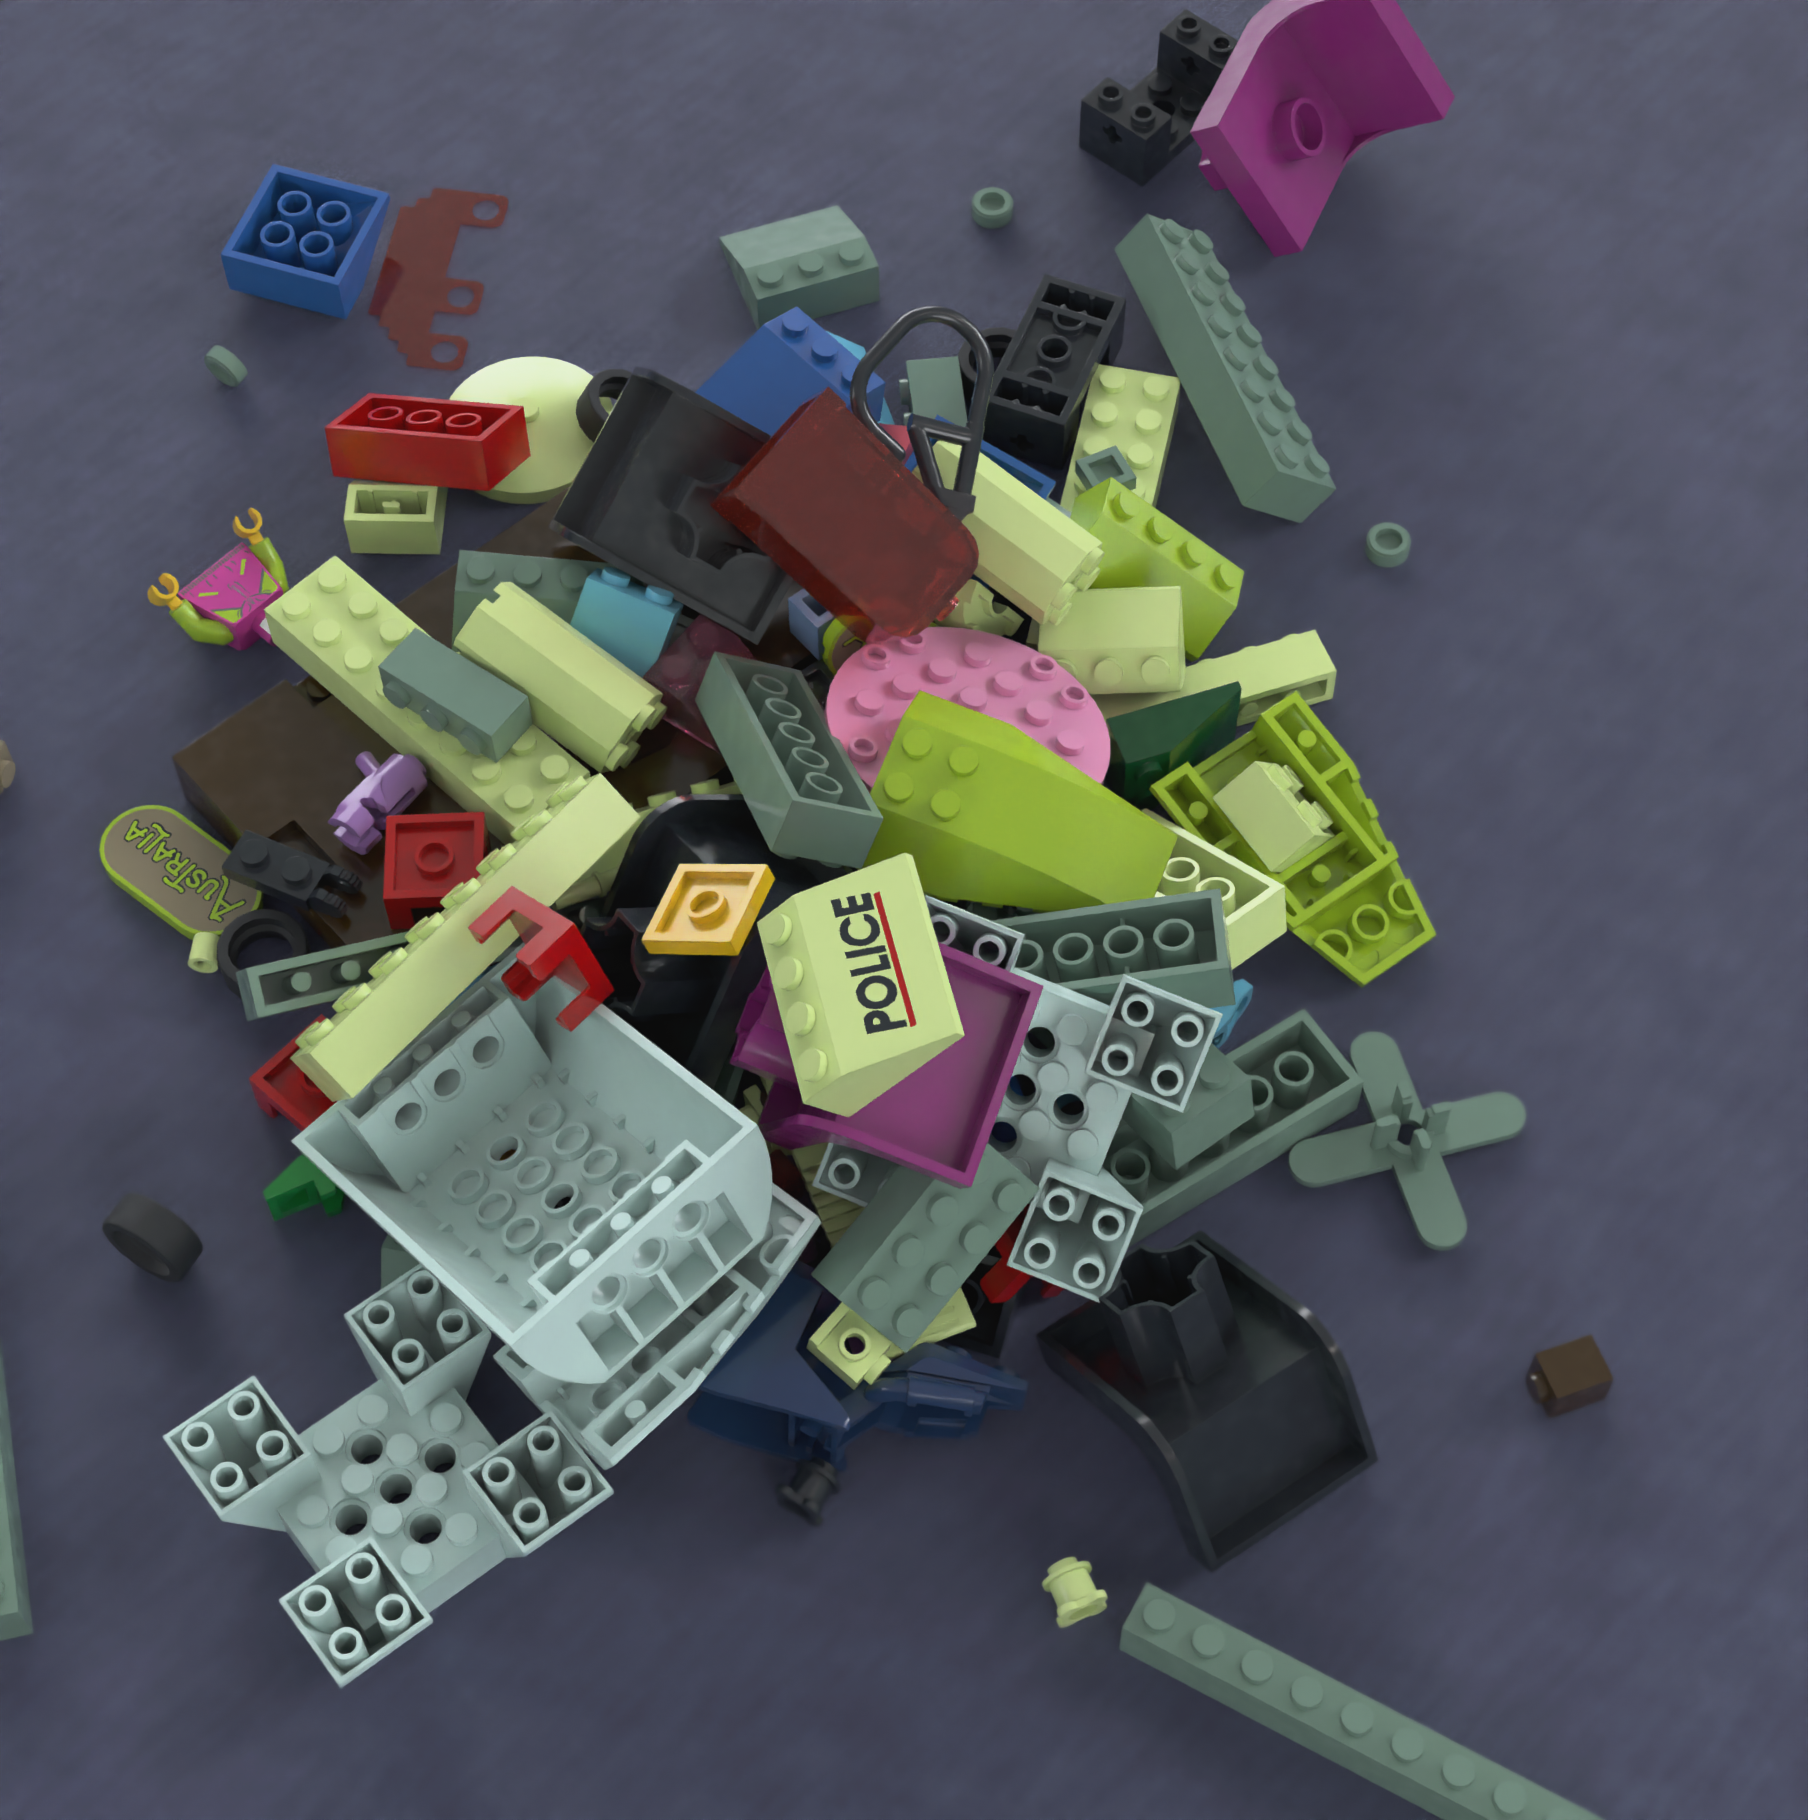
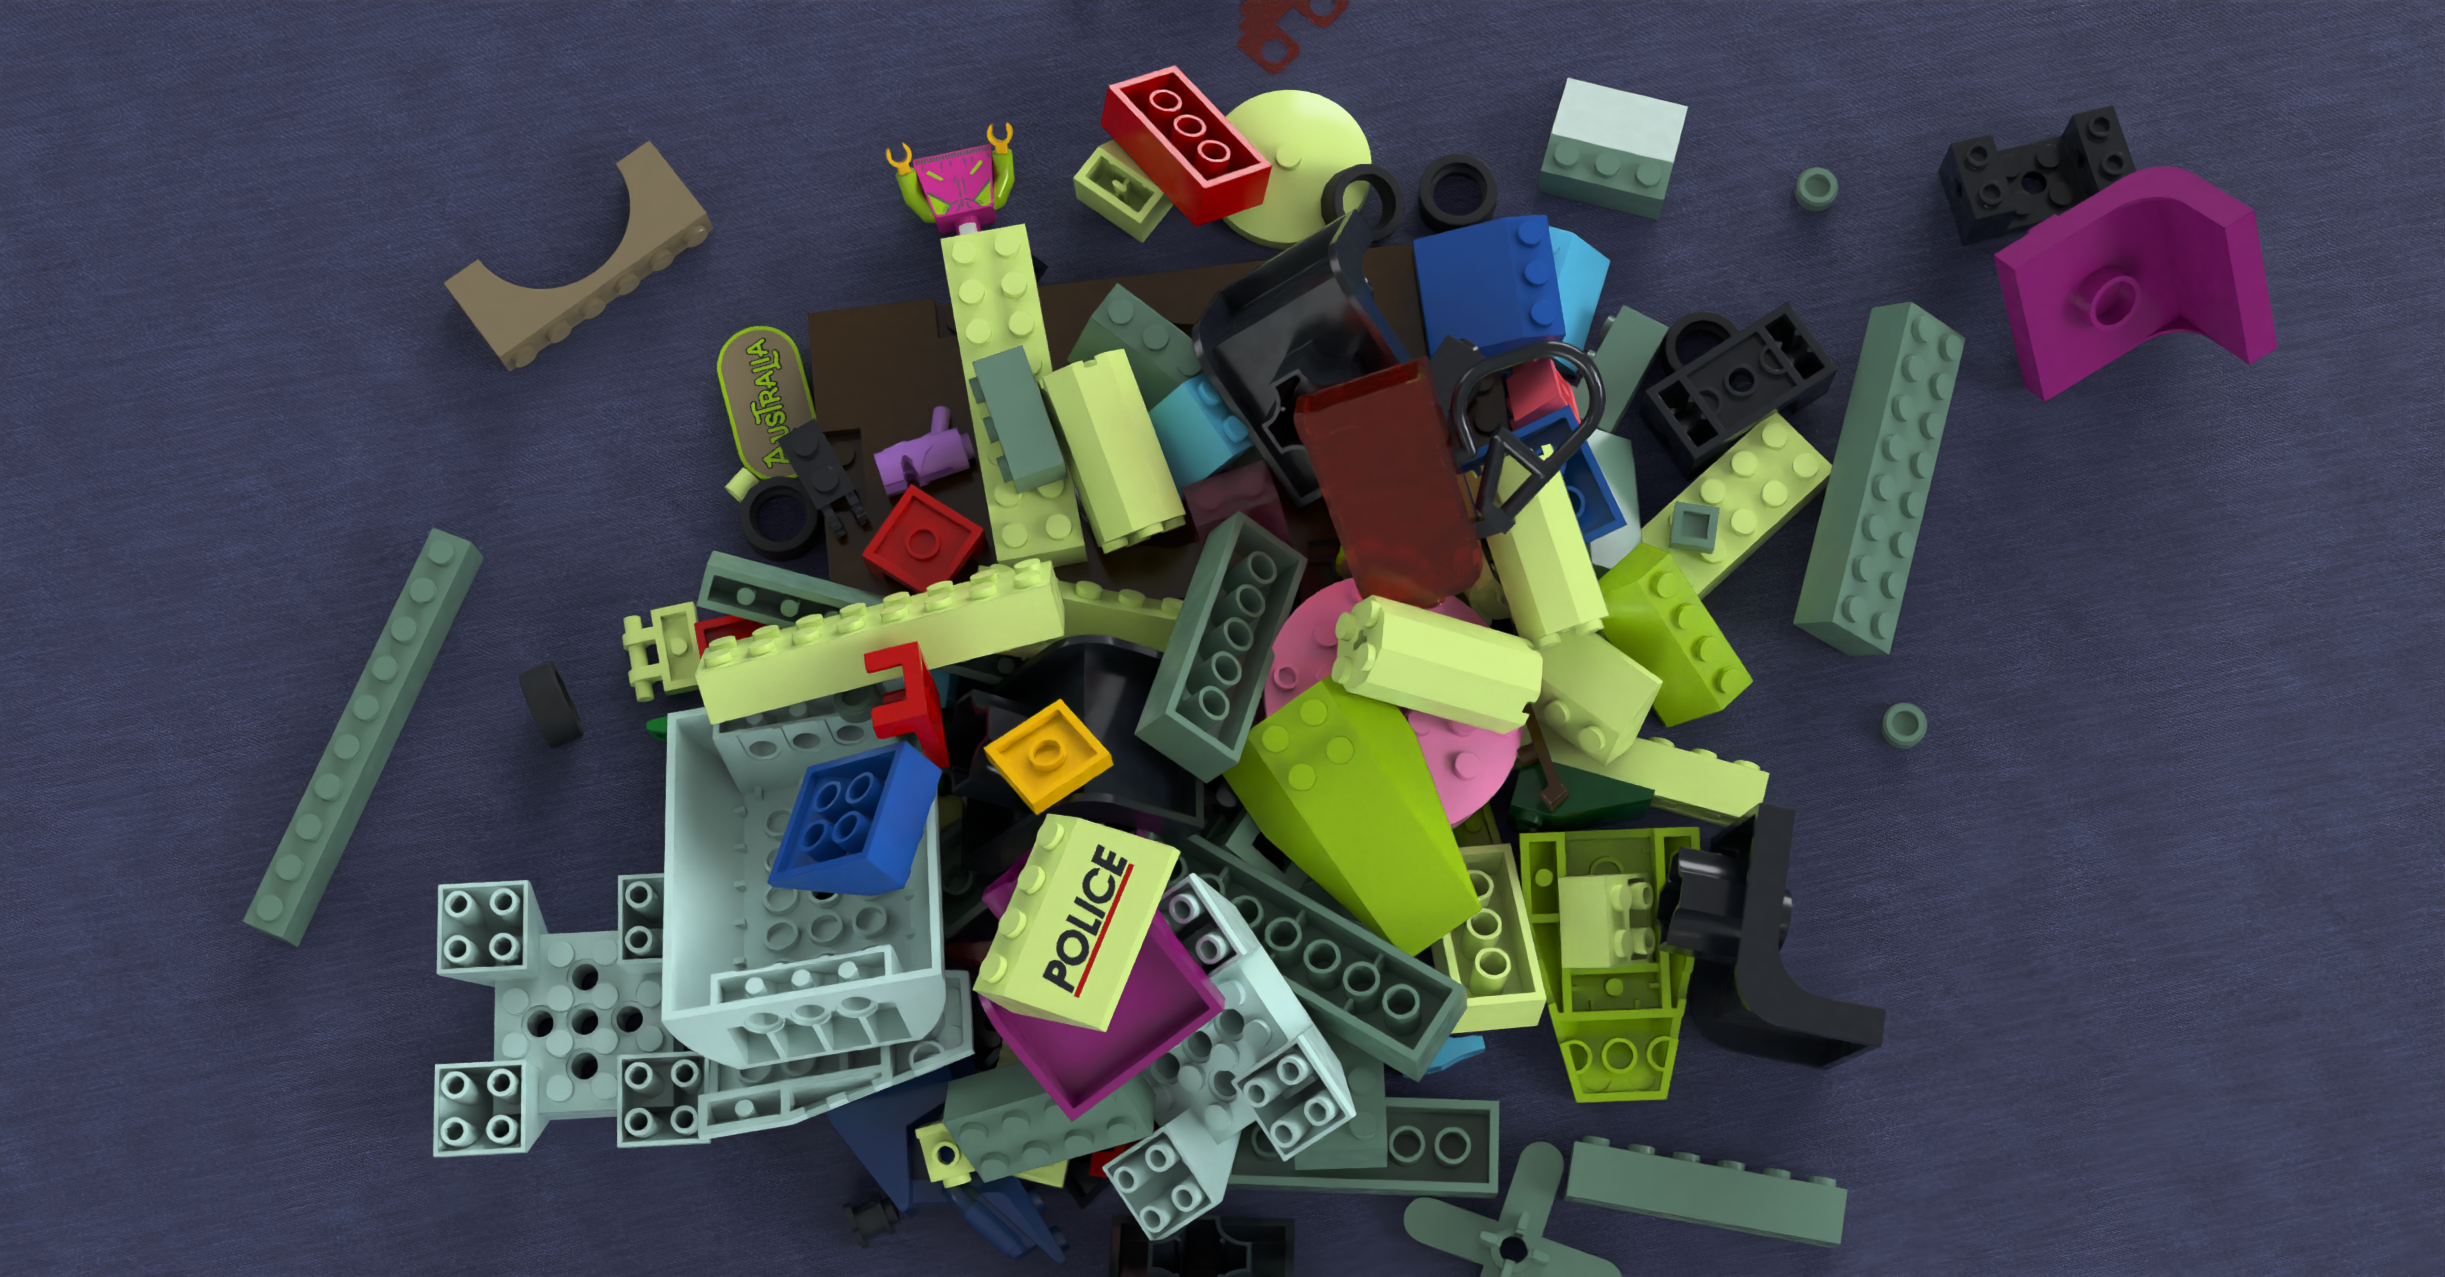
camera: 40 degrees right, 15 degrees up
(241, 1120) = (676, 648): none -> yellowish green plate
(478, 1004) = (856, 704): none -> sand green tile
(567, 1073) = (857, 823): none -> blue slope
(689, 342) = (1456, 165): none -> black tyre
(991, 650) = (1436, 664): none -> yellowish green brick
(1120, 704) = (1538, 752): none -> dark brown piece
(1438, 771) = (1733, 919): none -> black piece
(1528, 986) = (1705, 1193): none -> sand green brick

